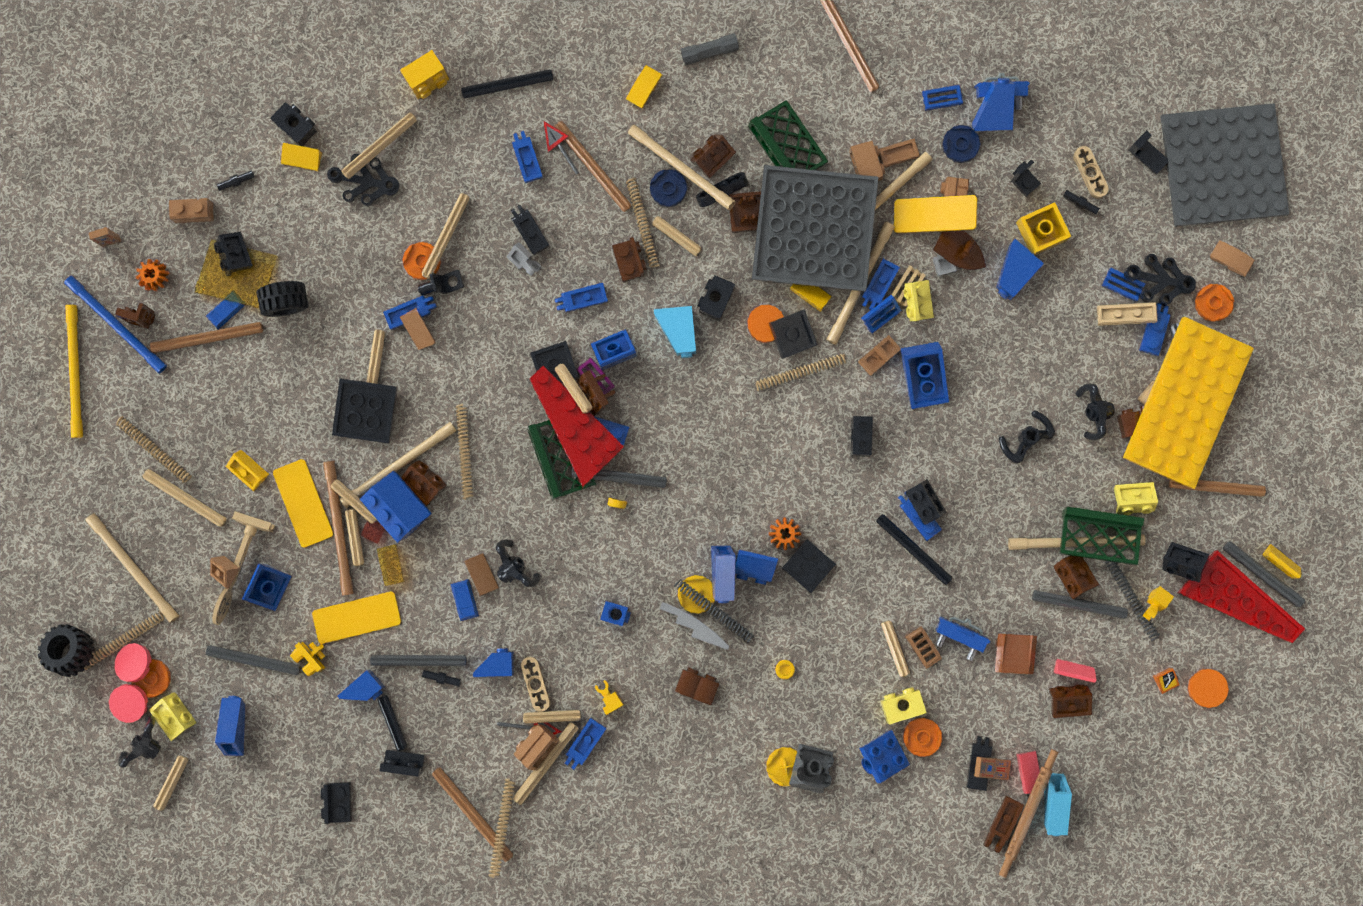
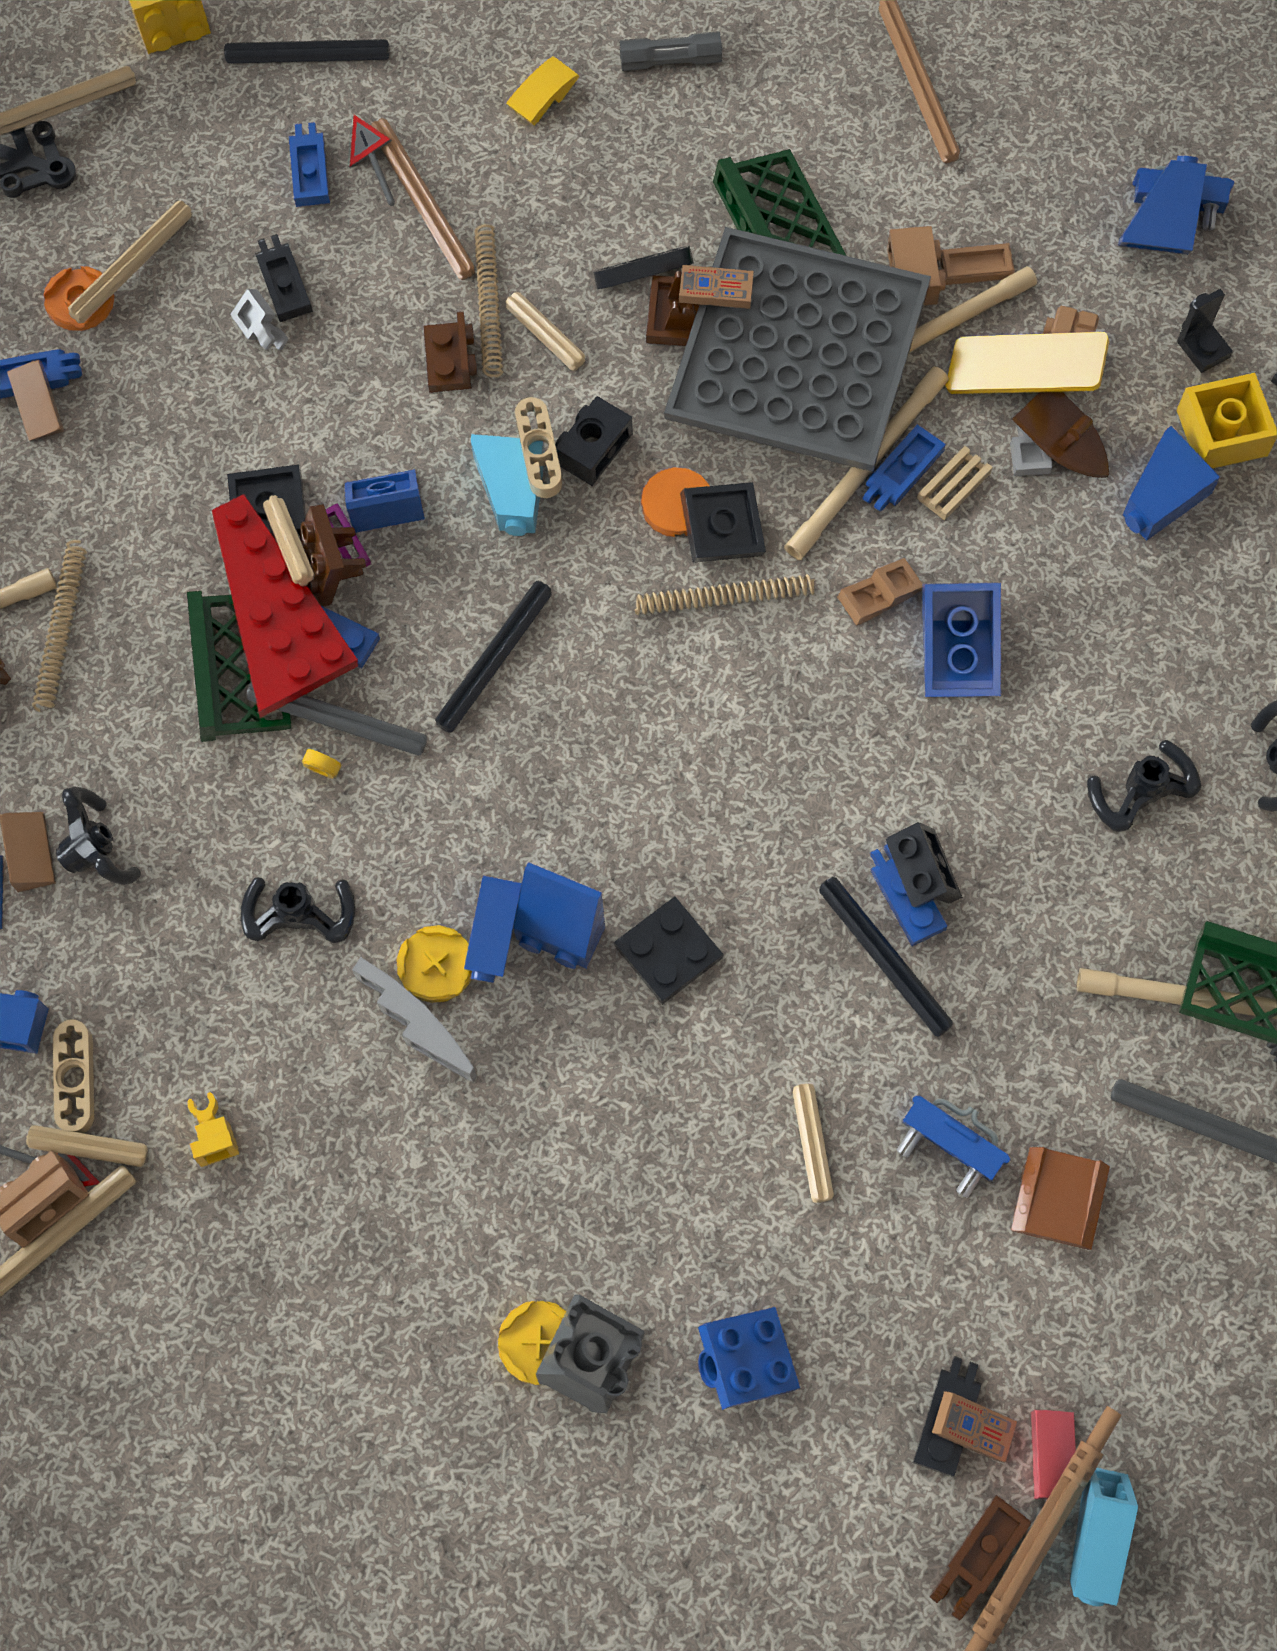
camera: 10 degrees right, 15 degrees down
(440, 283) = (99, 337): black bracket -> none
(582, 298) = (347, 402): blue hinge -> none
(585, 742) = (138, 1213): blue hinge -> none
(606, 614) = (253, 956): blue brick -> none
(623, 581) = (296, 910): none -> black piece
(669, 194) = (550, 263): dark blue tile -> none
(680, 301) = (531, 460): none -> tan beam
(690, 427) = (493, 656): none -> black axle
(697, 686) = (393, 1140): reddish brown brick -> none
(713, 155) = (641, 212): reddish brown bracket -> none
(718, 195) = (633, 264): tan piece -> none
(730, 620) = (460, 1001): dark grey piece -> none
(766, 203) = (716, 286): none -> medium nougat tile
(784, 669) = (579, 1143): yellow tile -> none
(791, 532) = (649, 881): orange gear -> none
(813, 295) = (771, 467): yellow slope -> none
(861, 436) = (818, 723): black brick -> none
(880, 311) = (870, 530): blue tile -> none
(914, 705) = (787, 1275): light yellow brick -> none
(915, 633) = (877, 1129): medium nougat slope -> none
(918, 300) = (971, 506): light yellow bracket -> none
(922, 737) = (830, 1349): orange tile -> none
(944, 104) = (1072, 194): blue tile -> none
(960, 149) = (1090, 277): dark blue tile -> none
(1071, 701) = (1164, 1319): reddish brown bracket -> none
(1075, 575) = (1206, 1062): reddish brown bracket -> none
(1075, 670) = (1180, 1260): coral slope -> none

